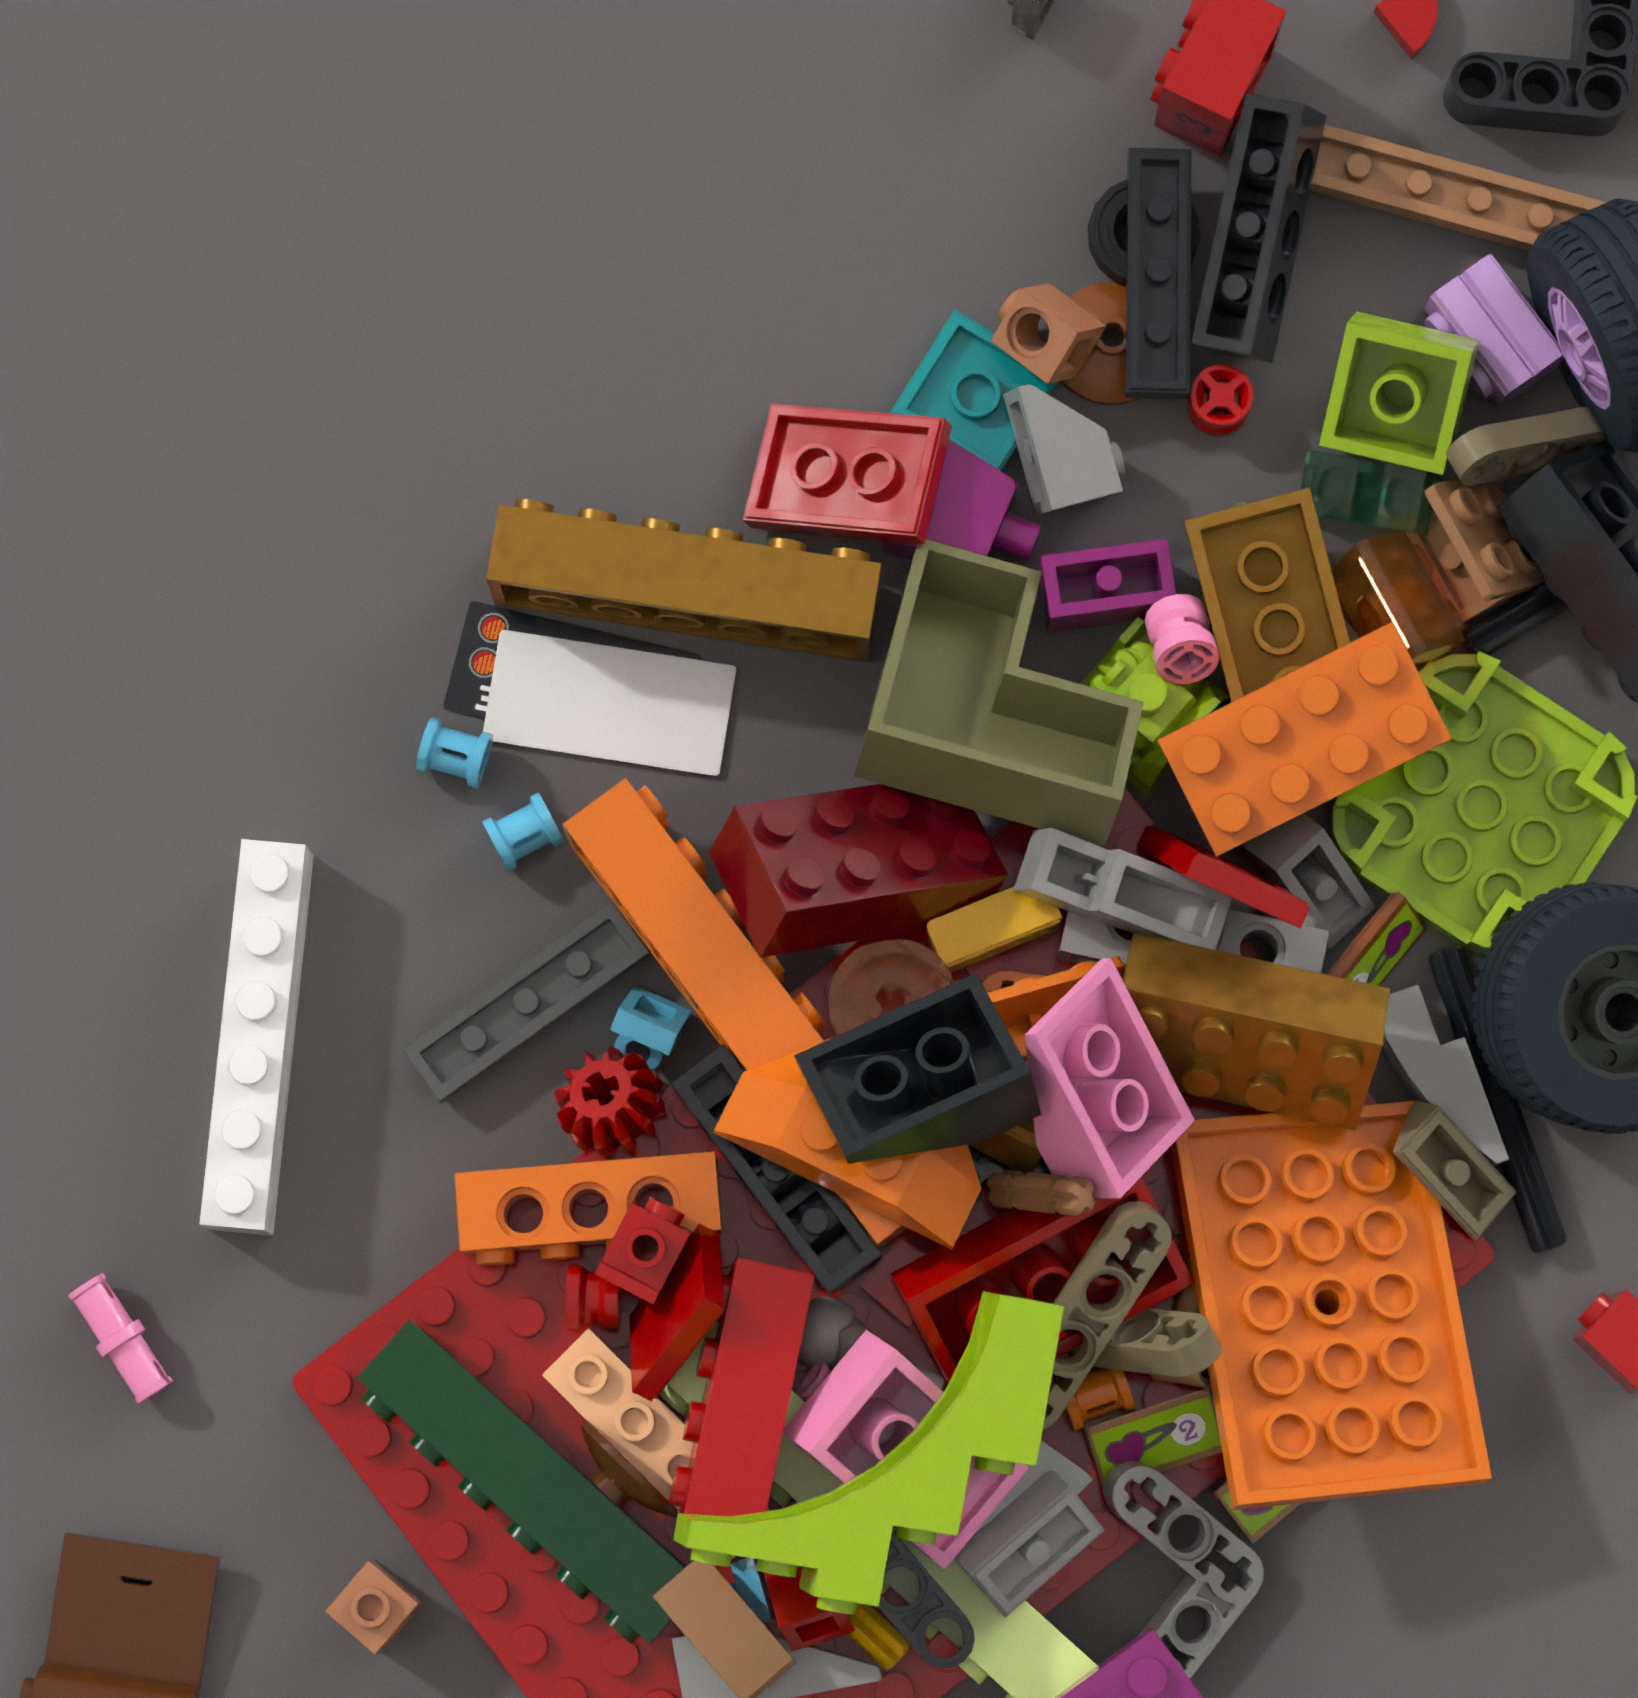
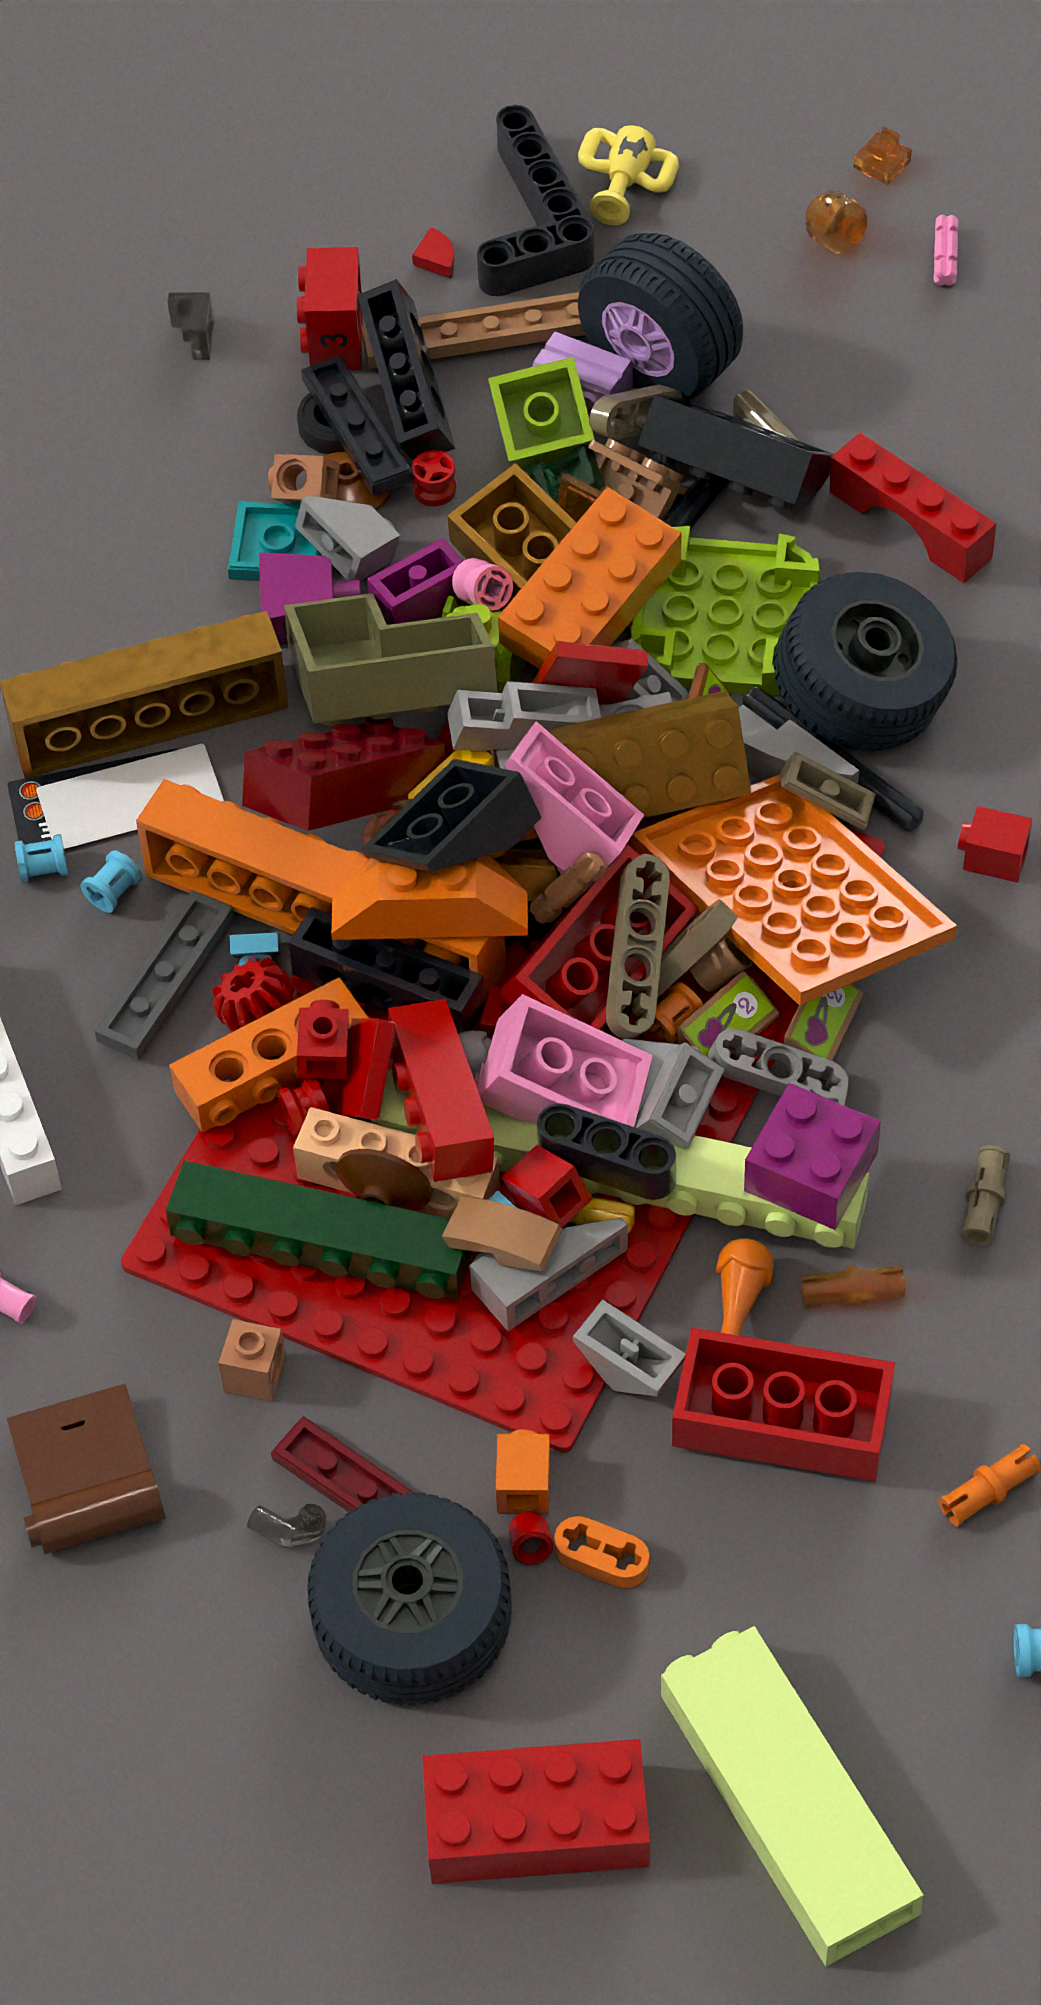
camera: 25 degrees left, 25 degrees down
(844, 1536) = (553, 1106): lime arch -> none
(847, 473) = (221, 591): tile -> none

